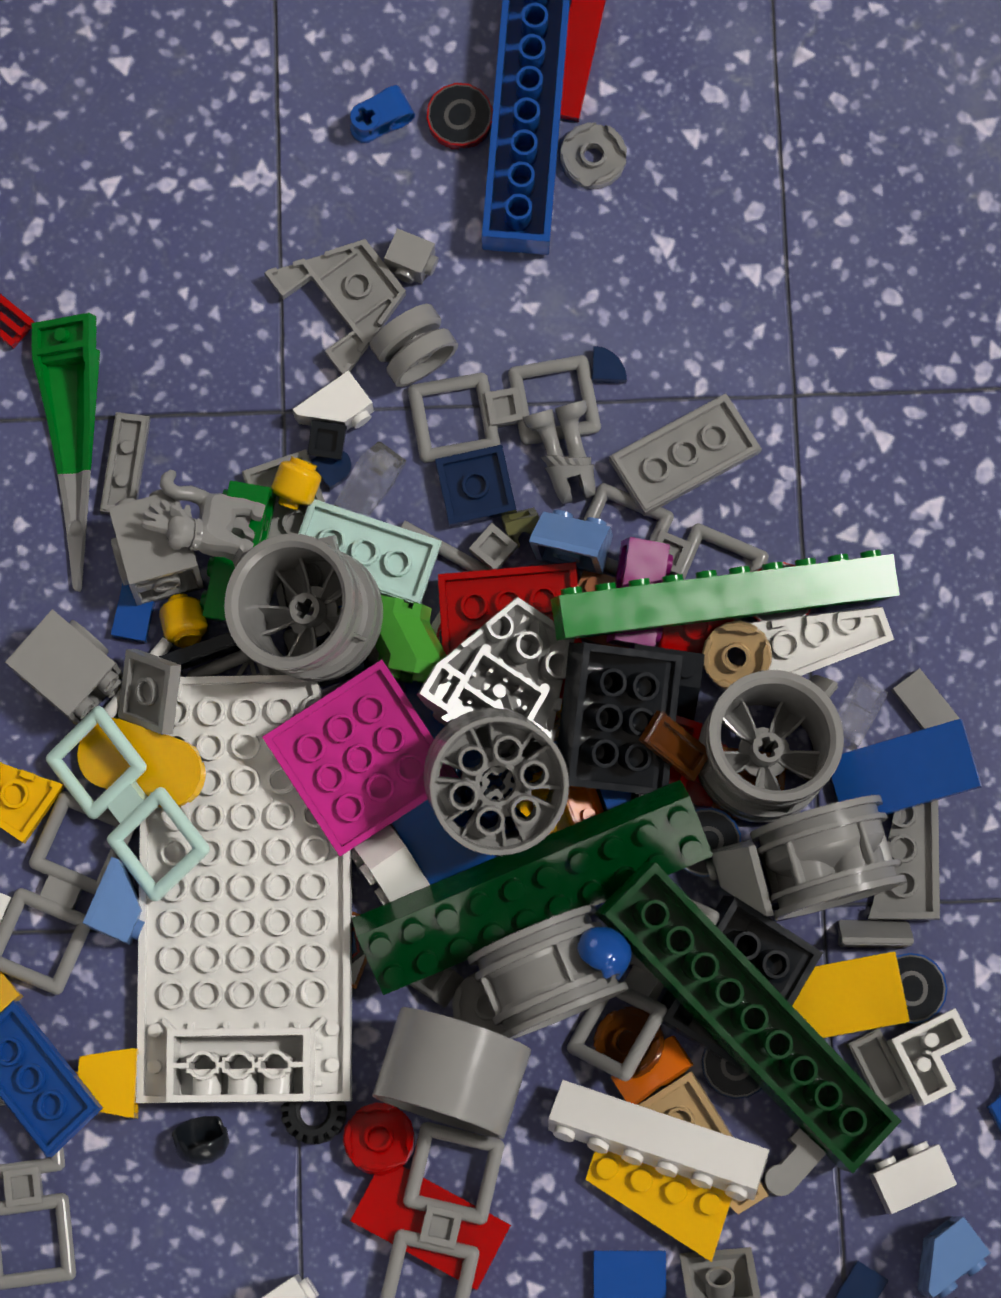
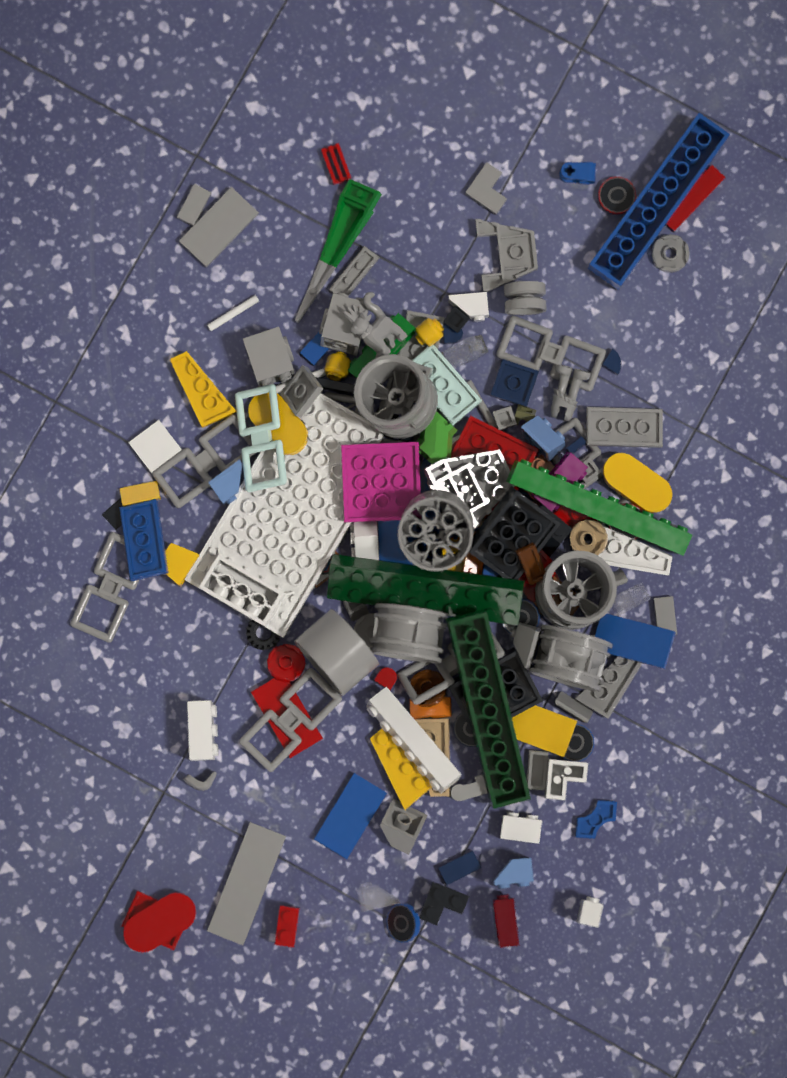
camera: 30 degrees right, 5 degrees up
(201, 1140) = (204, 614): black hair -> none
(249, 226) = (482, 189): none -> light grey tile
(410, 257) = (550, 253): light grey brick -> none
(553, 1065) = (386, 677): none -> red tile
(605, 950) = (439, 638): blue hair -> none
(629, 524) = (574, 447): none -> dark blue tile
(757, 526) = (637, 483): none -> yellow tile

